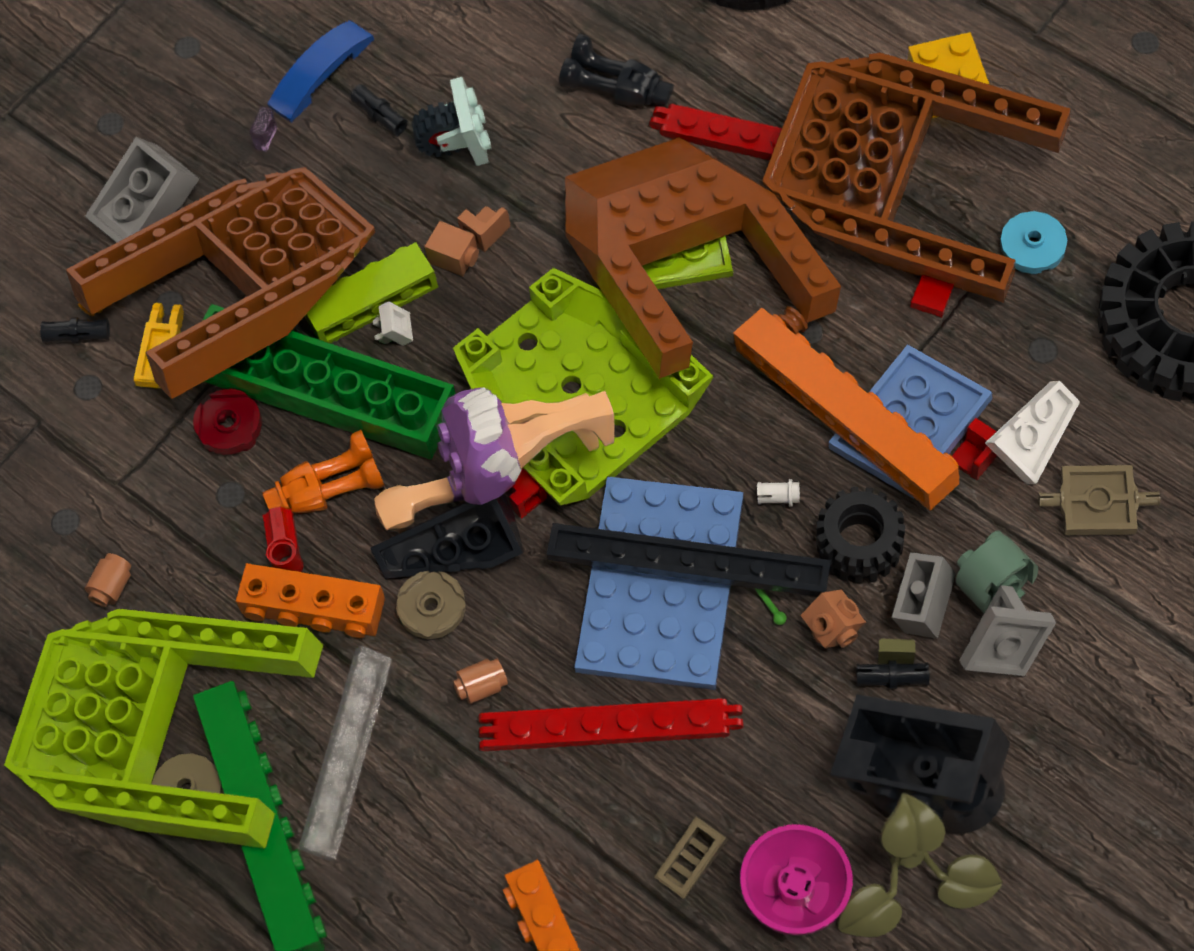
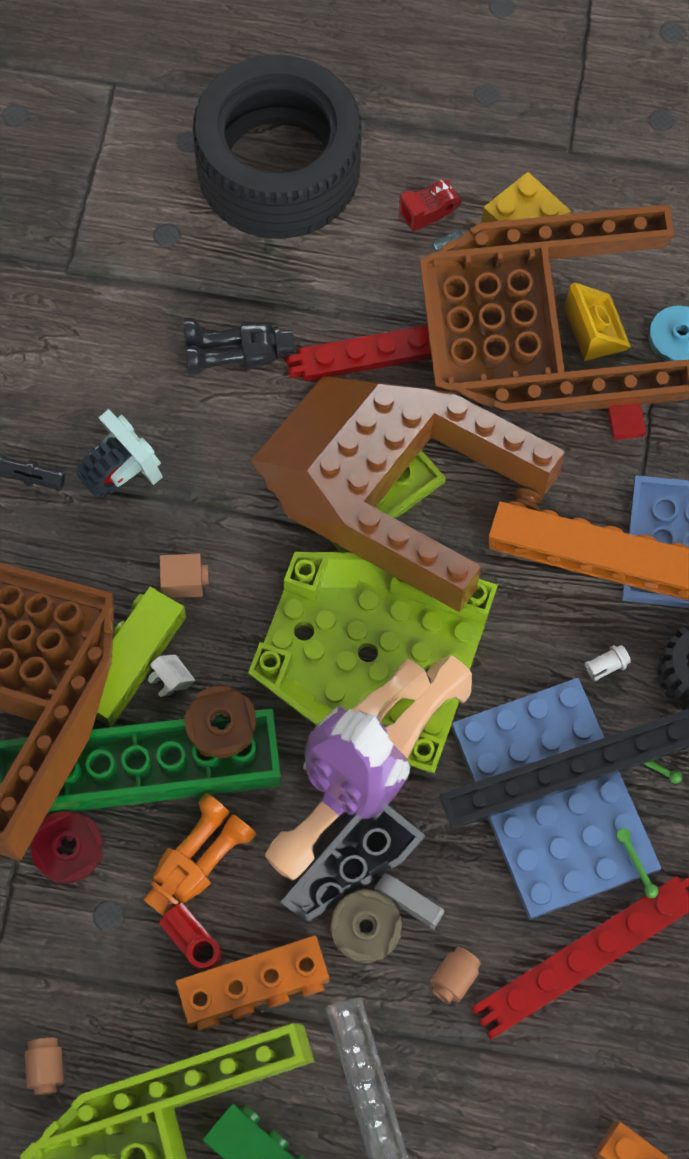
camera: 40 degrees left, 5 degrees up
(403, 390) = (203, 711): none -> reddish brown plate
(479, 603) = (410, 901): none -> light grey piece
(486, 225) = (198, 538): nougat panel -> none
(695, 640) = (623, 836): none -> bright green hinge
(867, 27) = (428, 204): none -> red leg
(958, 195) = (594, 322): none -> yellow slope

